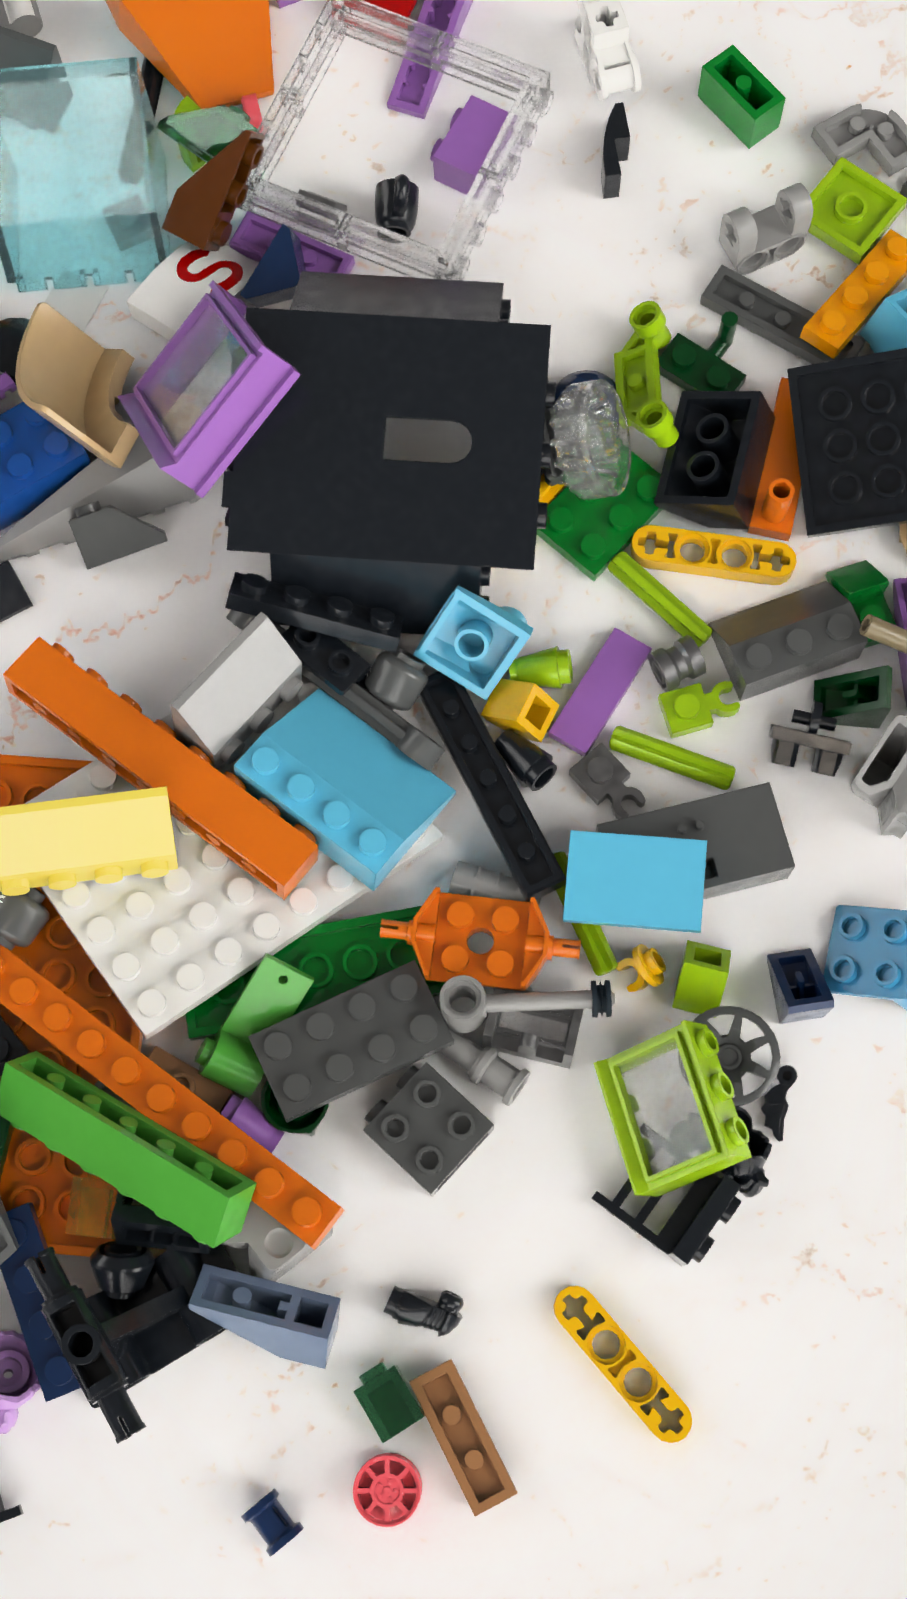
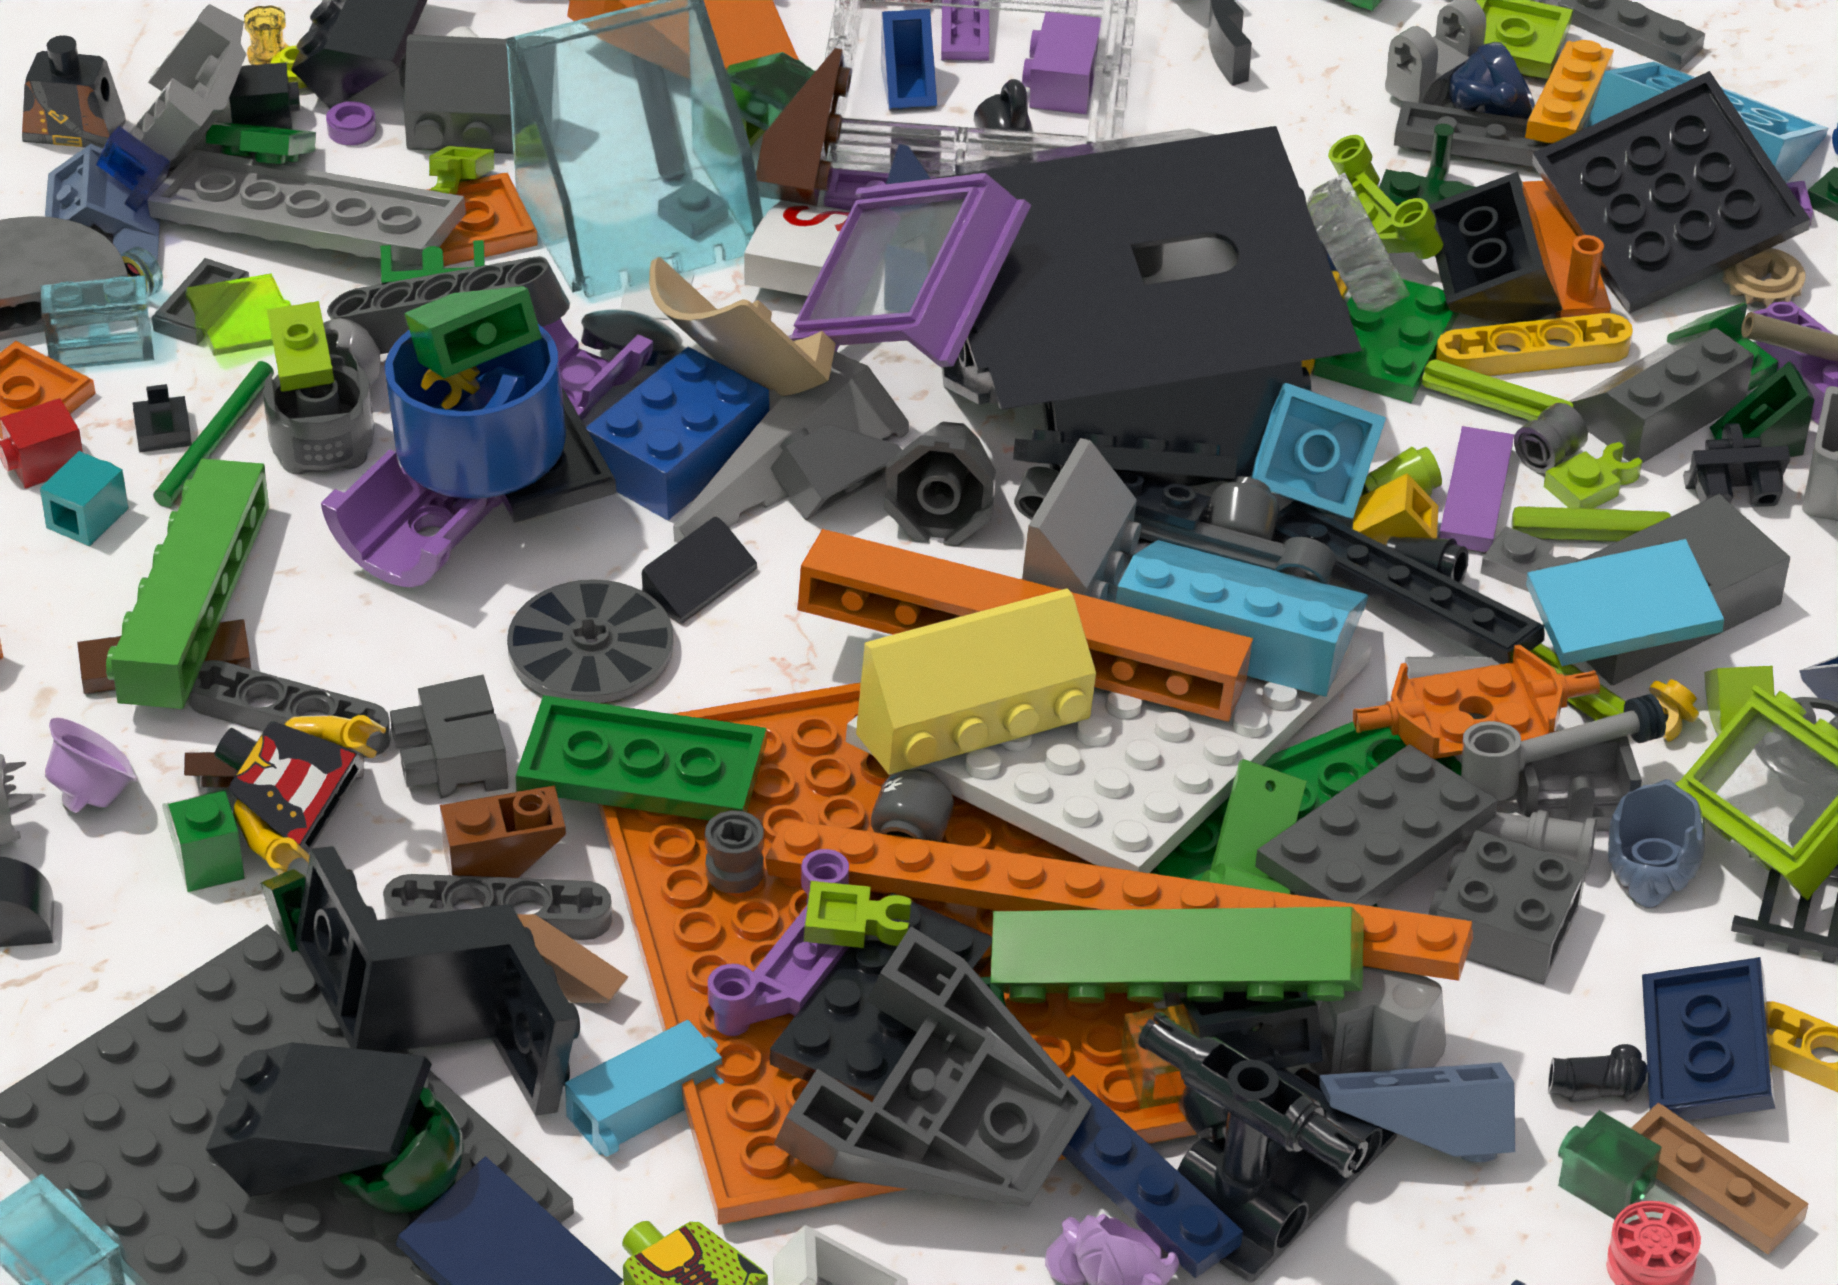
camera: 25 degrees left, 30 degrees down
(187, 572) = (941, 485): none -> dark grey cone
(349, 115) = (908, 59): none -> blue slope
(518, 1309) = (1708, 1039): none -> dark blue tile
(564, 1109) = (1656, 841): none -> sand blue hair
(801, 270) = (1491, 84): none -> dark blue piece

